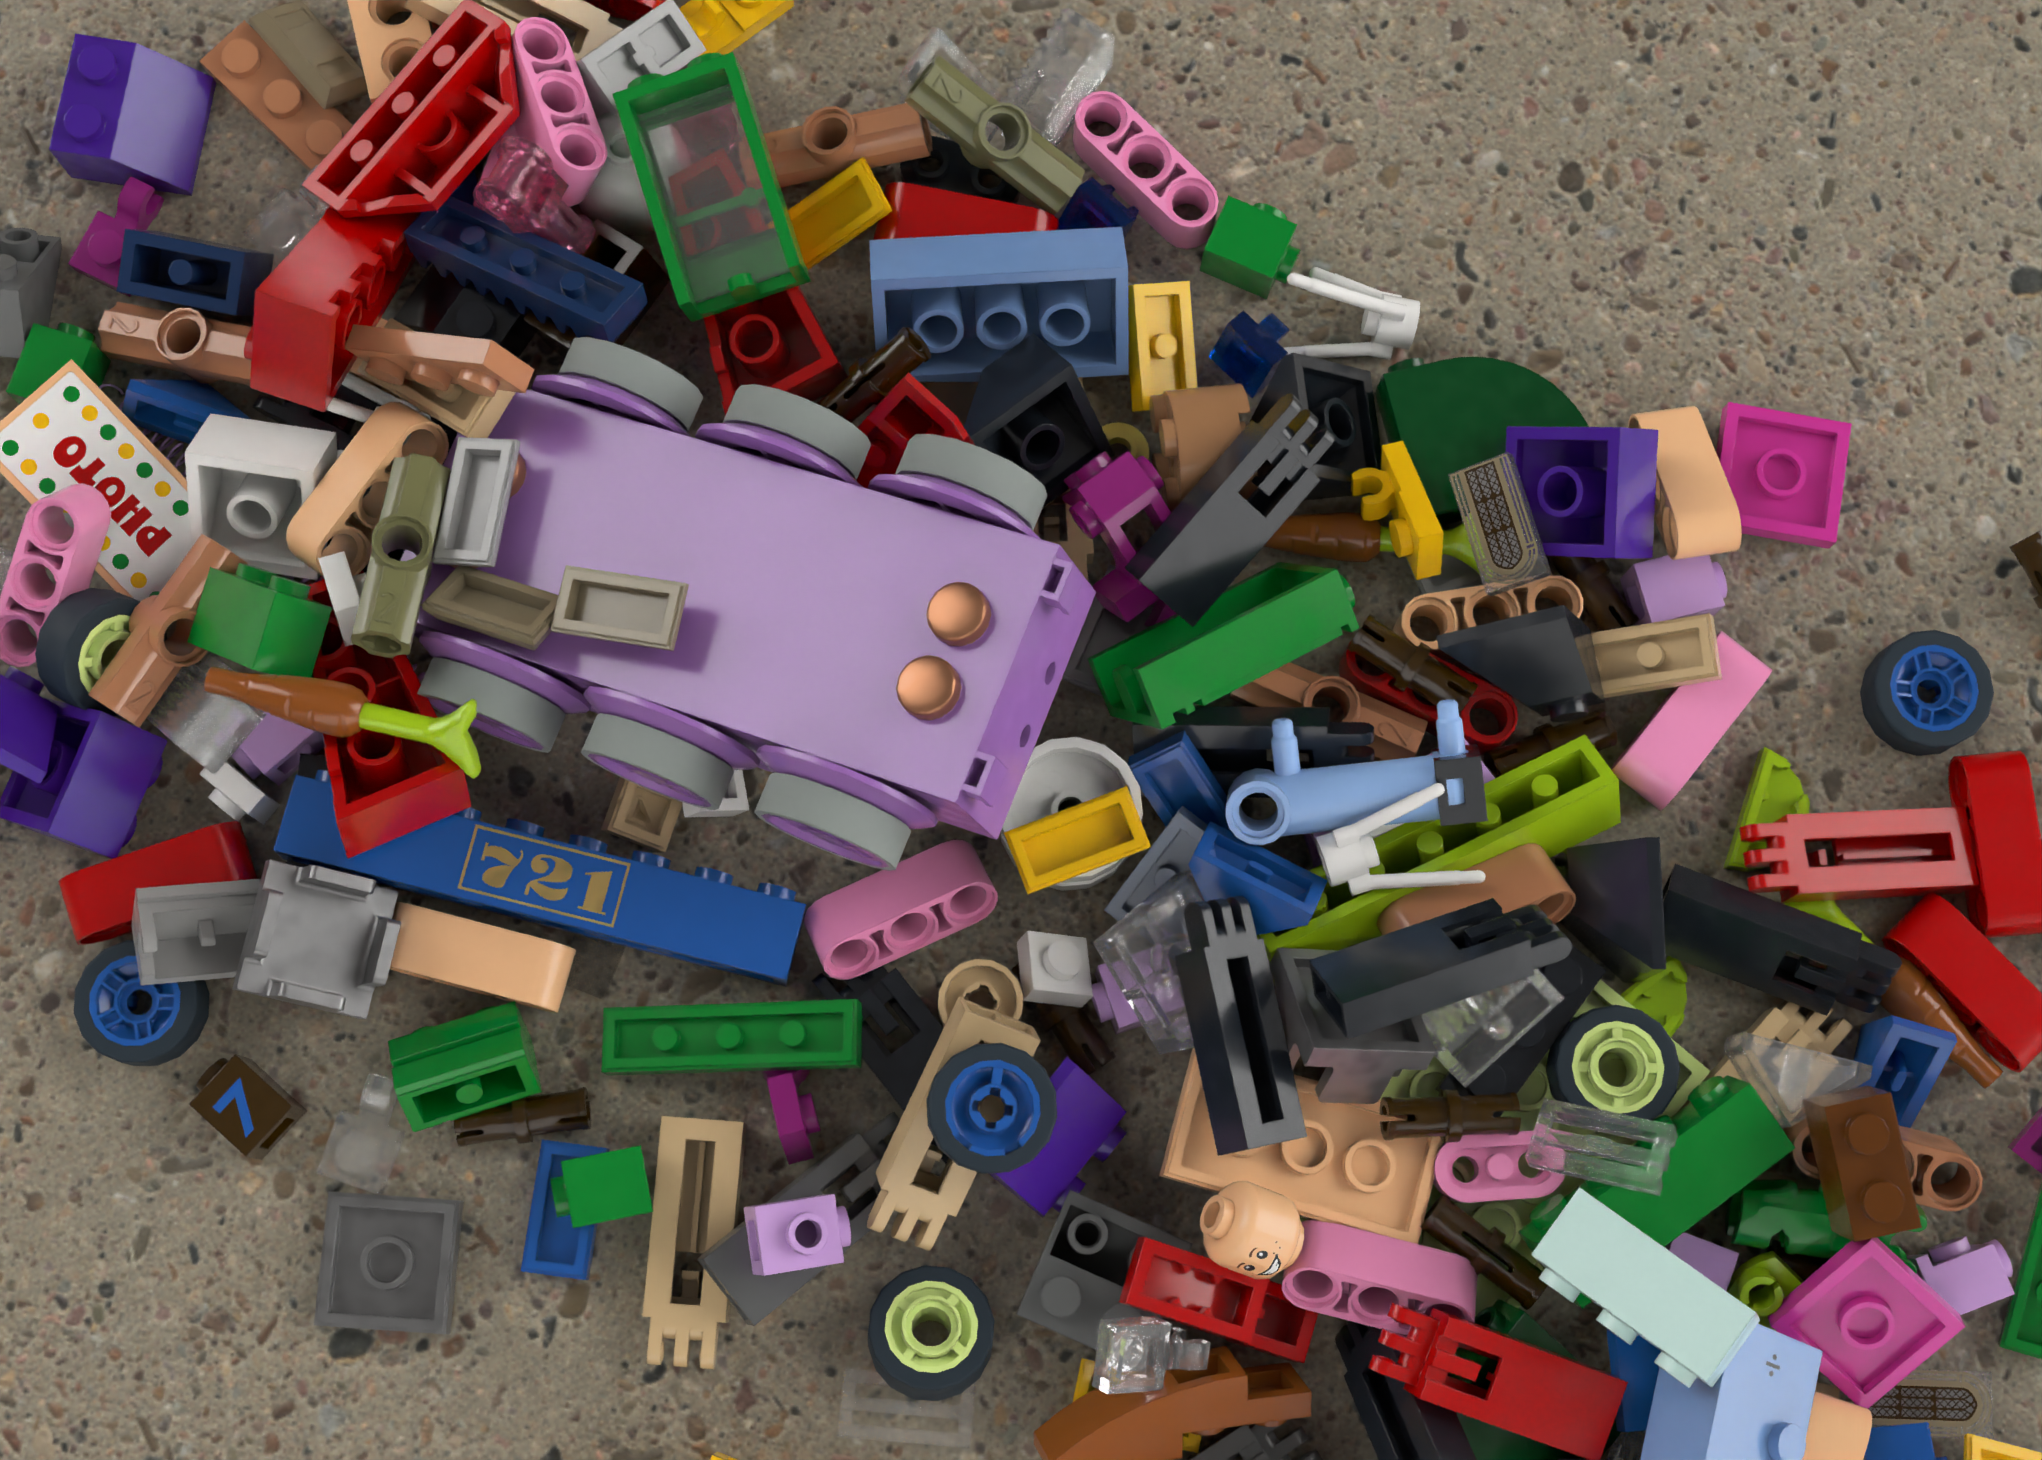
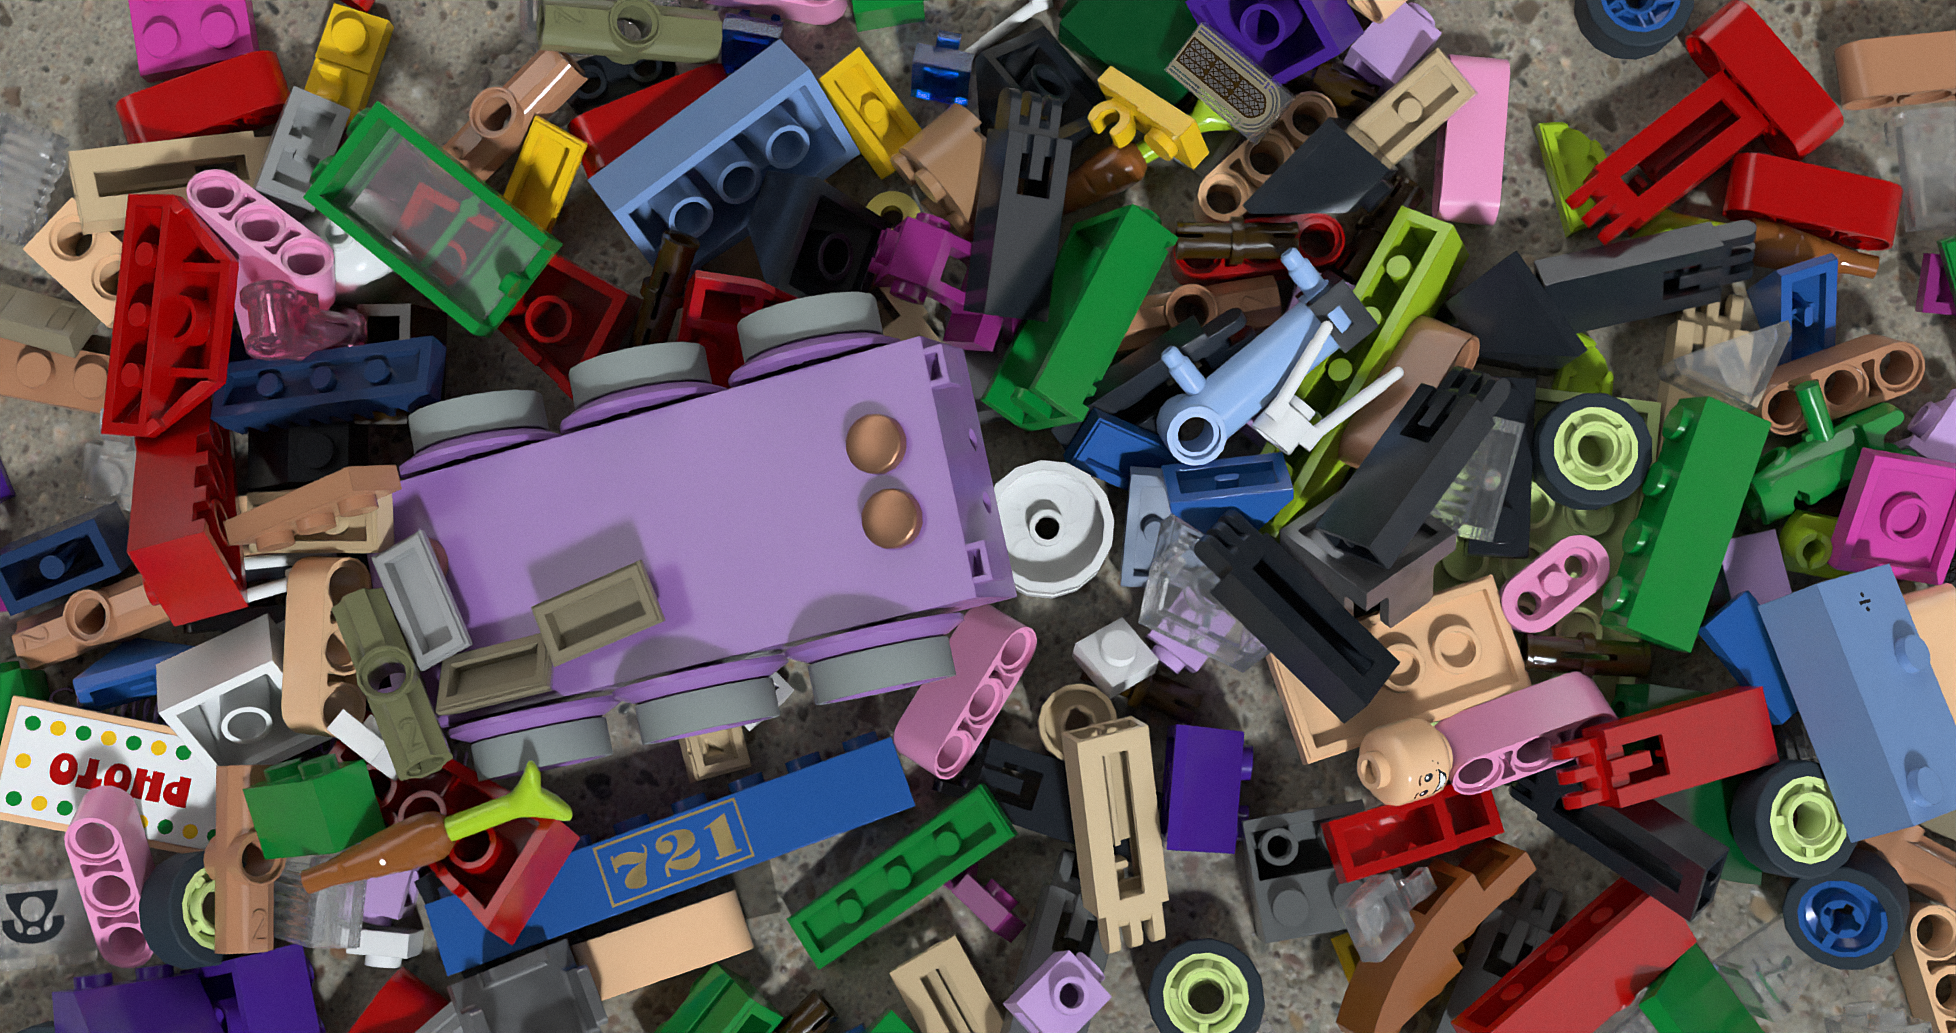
camera: 25 degrees left, 5 degrees up
(1027, 1114) = (1181, 812): wheel -> none
(1077, 840) = (1071, 549): yellow tile -> none
(1450, 1116) = (1494, 571): dark brown pin -> none
(1595, 1169) = (1634, 540): clear tile -> none
(1643, 1290) = (1738, 613): light aqua brick -> none
(1861, 1163) = (1832, 401): reddish brown brick -> none

